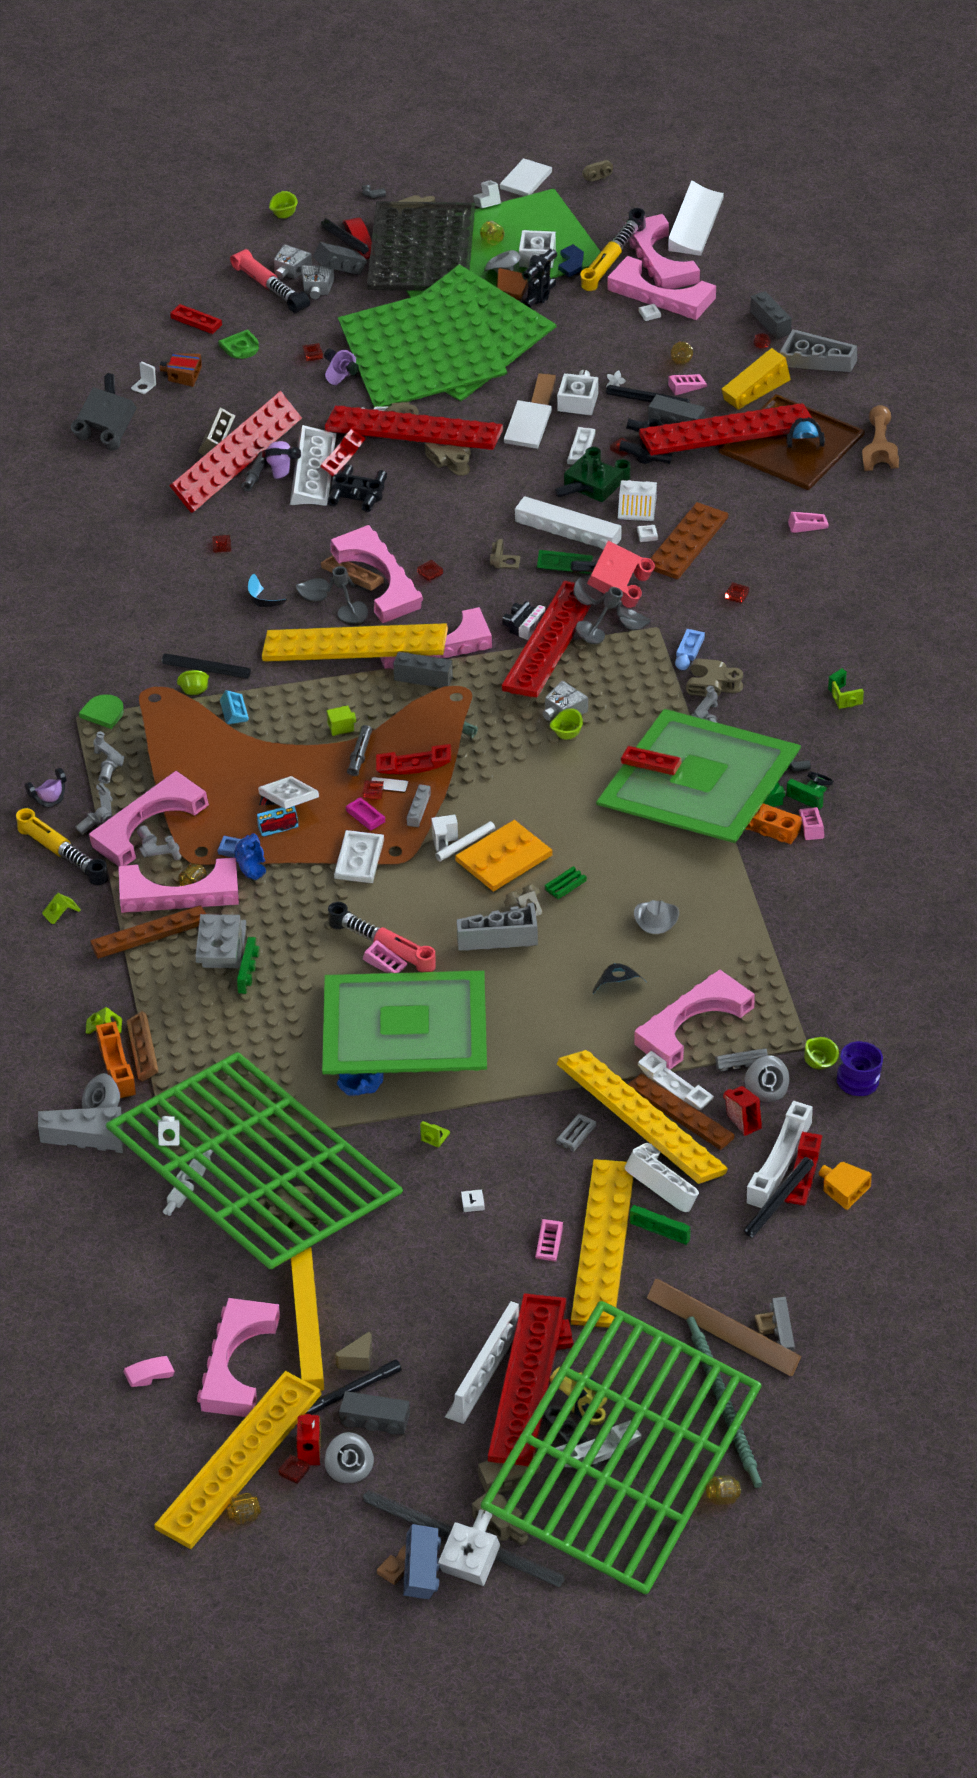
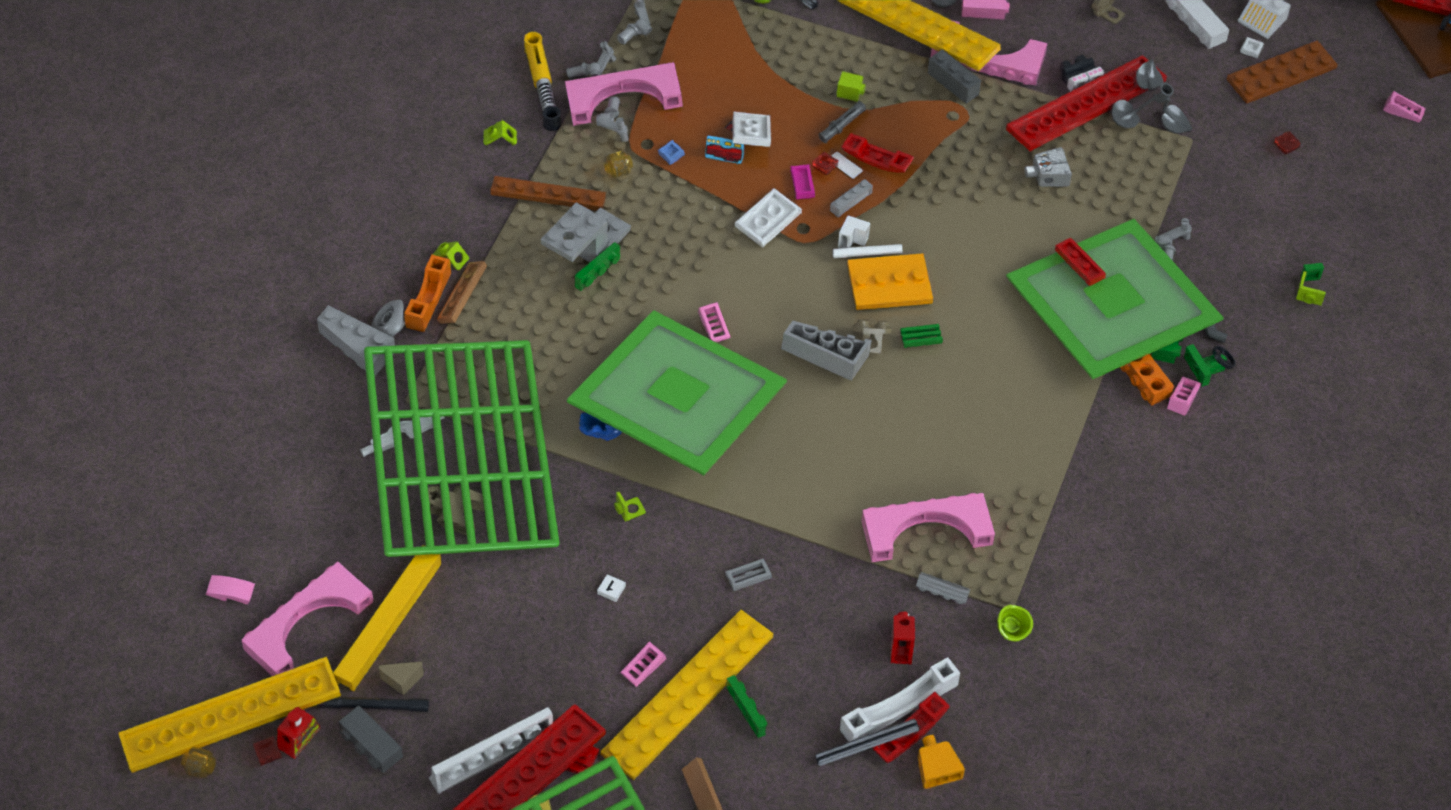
camera: 30 degrees right, 10 degrees up
(50, 792) = (569, 28): cap -> none
(168, 1122) = (408, 376): white bracket -> none
(216, 889) = (628, 185): bright pink arch -> none
(233, 707) = (776, 30): medium azure slope -> none
(249, 856) = (674, 170): blue hair -> none
(348, 1458) = (314, 769): light grey hat -> none
(421, 956) = (727, 303): piece -> none
(469, 729) = (949, 147): sand green pin -> none
(560, 560) = (1157, 38): green plate -> none
(567, 724) = (1035, 189): lime helmet -> none
(607, 975) = (904, 452): black piece -> none
(615, 570) = (1187, 69): coral piece -> none
(642, 1116) = (810, 595): yellow plate -> none
(656, 916) = (972, 409): light grey hat -> none
(656, 1070) = (865, 576): white slope -> none
(659, 1178) = (773, 650): white beam -> none
(682, 1112) = (852, 607): dark orange plate -> none
(688, 648) = (1203, 173): light blue plate -> none
(713, 674) = (1205, 214): dark tan piece -> none
(767, 1078) = (948, 621): light grey hat -> none
(859, 1068) = (1035, 659): dark purple wheel -> none

